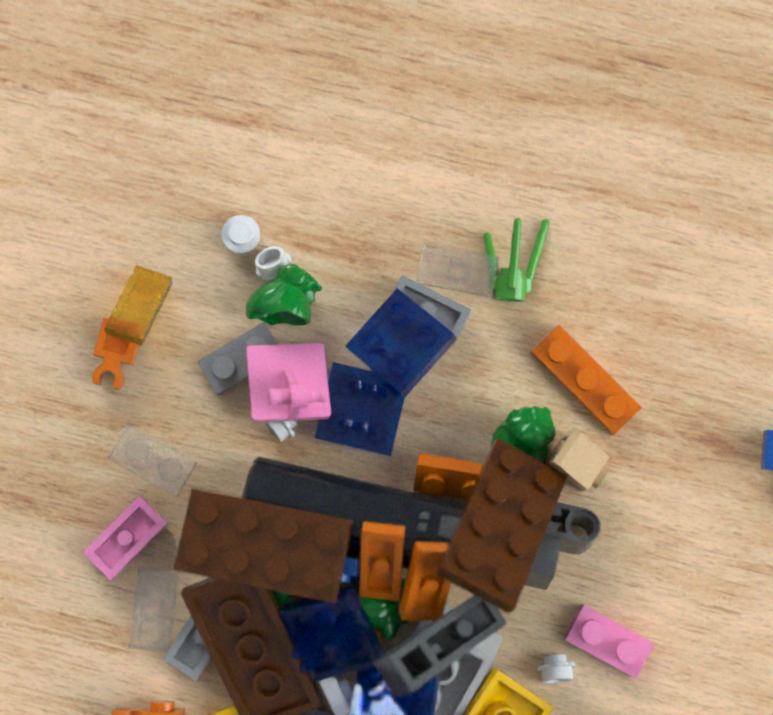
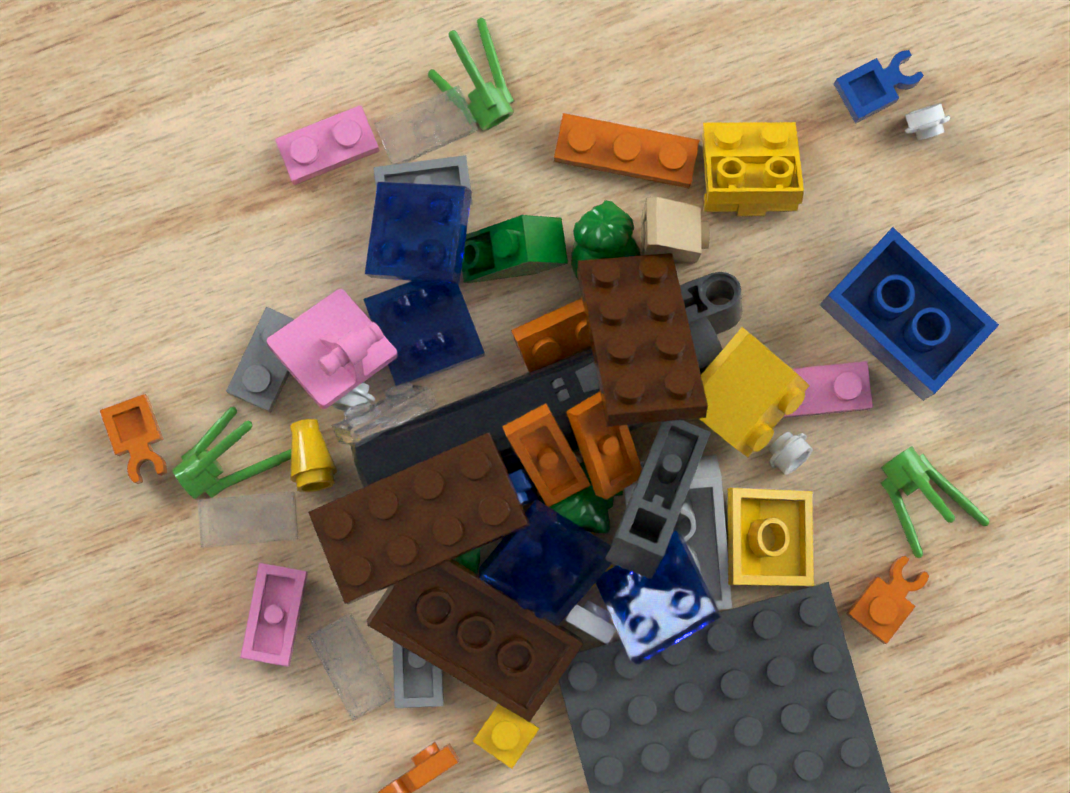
camera: 35 degrees left, 0 degrees up
(138, 305) = (127, 374): clear yellow tile -> none
(143, 404) = (200, 468): none -> bright green plant
(223, 447) = (310, 458): none -> yellow cone
(240, 234) = (182, 235): white plate -> none
(270, 261) = (236, 243): white plate -> none
(278, 451) = (369, 421): none -> clear plate
(285, 298) = (272, 268): green hair -> none
(381, 237) = (327, 145): none -> bright pink plate
(460, 397) = (514, 249): none -> green slope
(554, 612) = (749, 393): none -> yellow slope
(665, 451) = (752, 167): none -> yellow plate
(706, 632) = (909, 314): none -> blue brick

